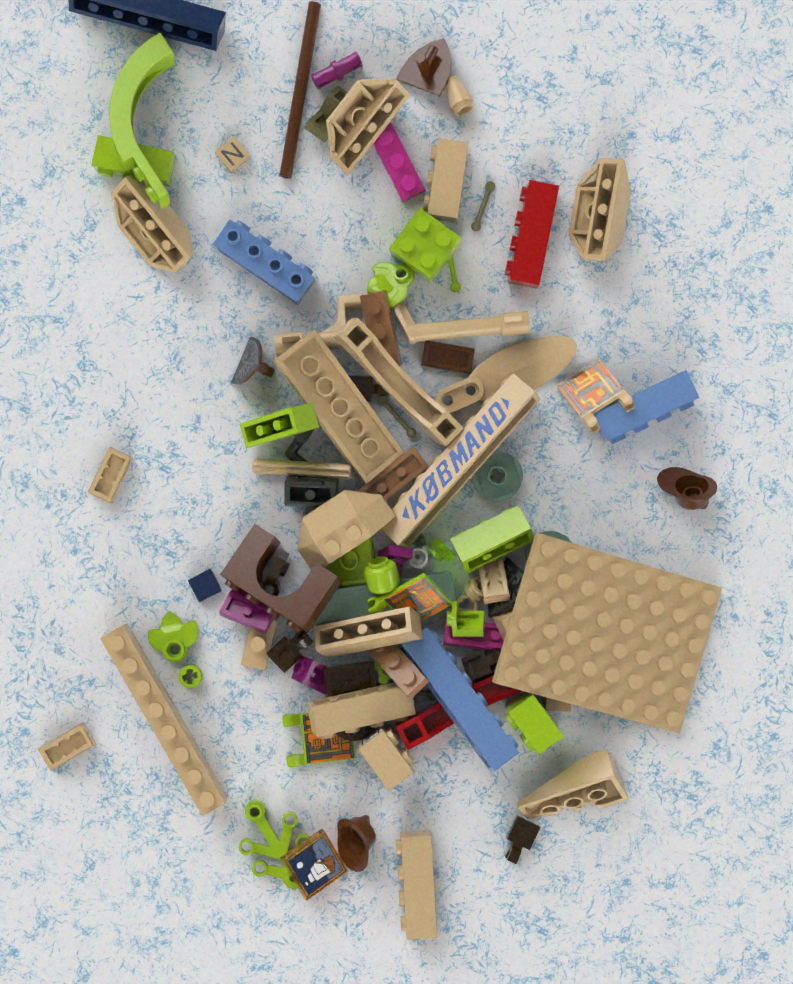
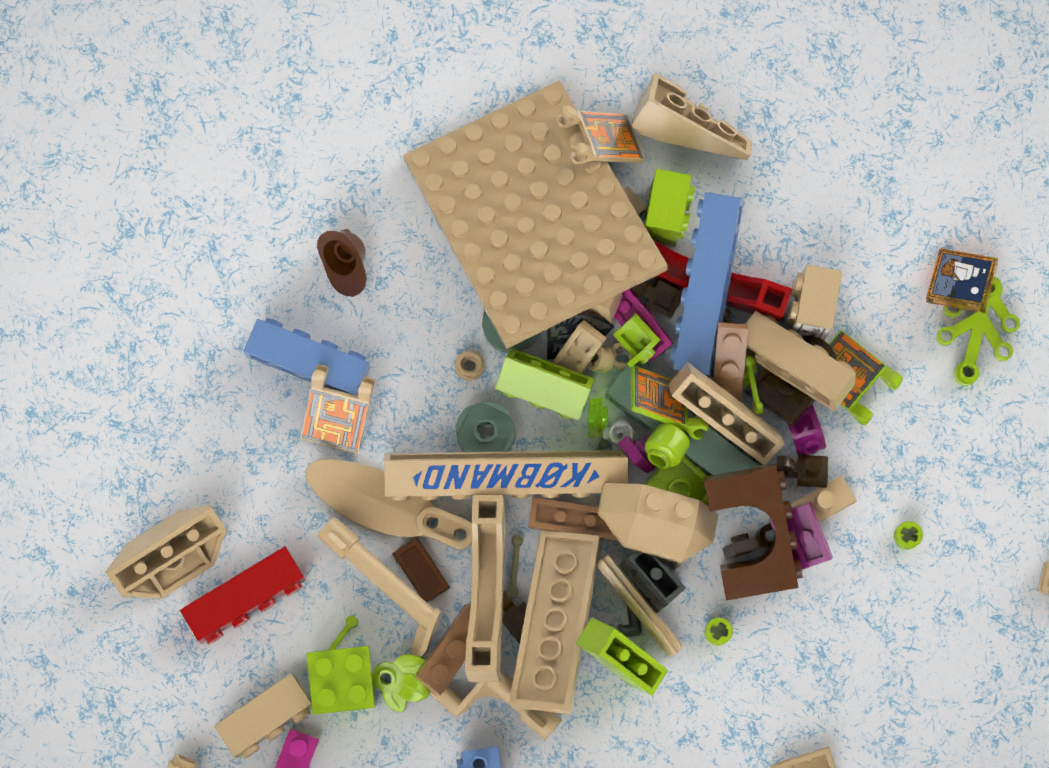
camera: 140 degrees left, 10 degrees down
(164, 719) = (965, 523): tan brick -> none
(173, 632) = (886, 585): lime plate -> none
(205, 585) = (819, 596): dark blue tile -> none
(234, 500) = (714, 623): none -> lime bush
(251, 362) = (589, 737): shield -> none
(354, 841) = (910, 264): reddish brown piece -> none
(355, 658) = (757, 406): none -> lime hinge
(418, 885) = (894, 179): tan brick -> none
(489, 187) = (234, 674): olive hinge -> none
(522, 835) = (770, 133): dark brown plate -> none
(555, 504) = (469, 356): none -> tan plate
(615, 727) = (606, 136): none -> flag

